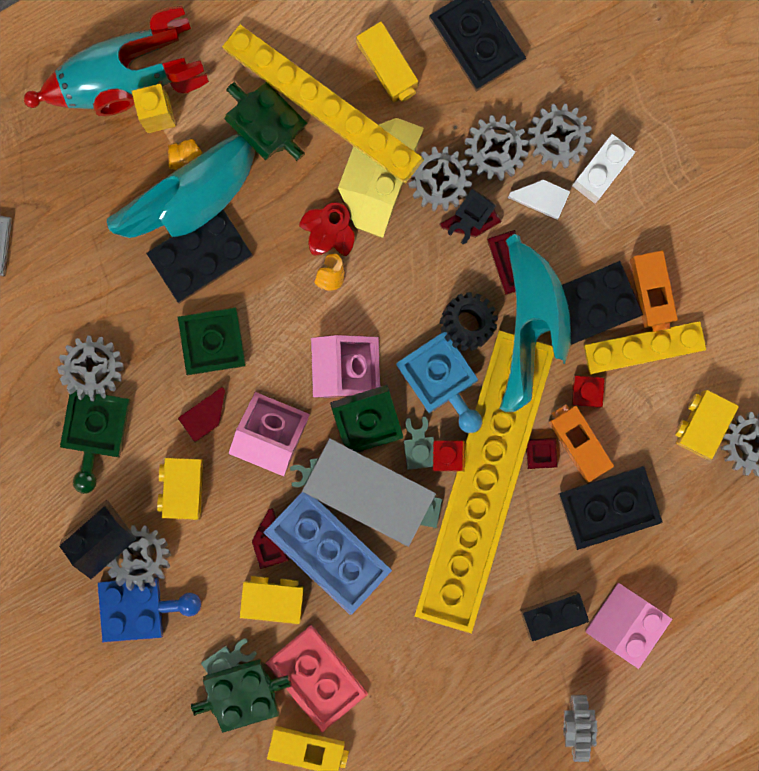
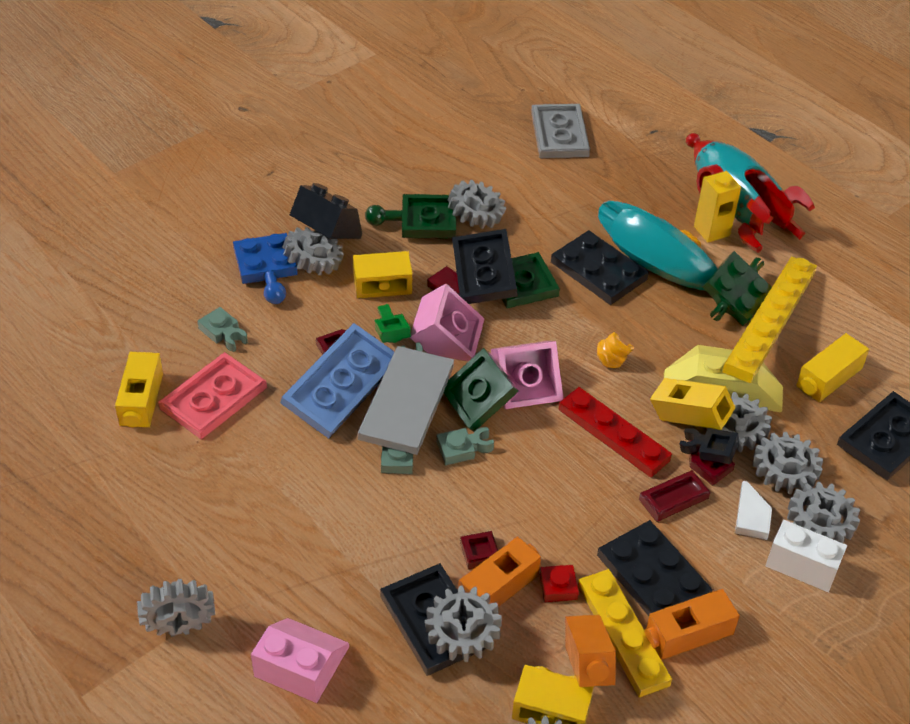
camera: 80 degrees right, 40 degrees down
(200, 381) = (484, 266): none -> black plate
(241, 695) = (191, 335): dark green plate -> none
(267, 492) = (391, 327): none -> green plate
(272, 600) = (286, 347): yellow brick -> none
(326, 233) = (656, 349): red plate -> none
(424, 220) = (693, 403): none -> yellow brick
(425, 298) = (615, 432): none -> red plate
(438, 376) = (539, 445): dark azure plate -> none
(449, 456) = (458, 459): red plate -> none
(479, 310) = (612, 448): black tyre -> none
(481, 495) = (439, 500): yellow plate -> none
(539, 309) = (615, 501): teal piece -> none
(554, 616) = (302, 576): black brick -> none
(637, 475) = (445, 625): none -> light grey gear
(677, 386) = (590, 651): none -> orange brick

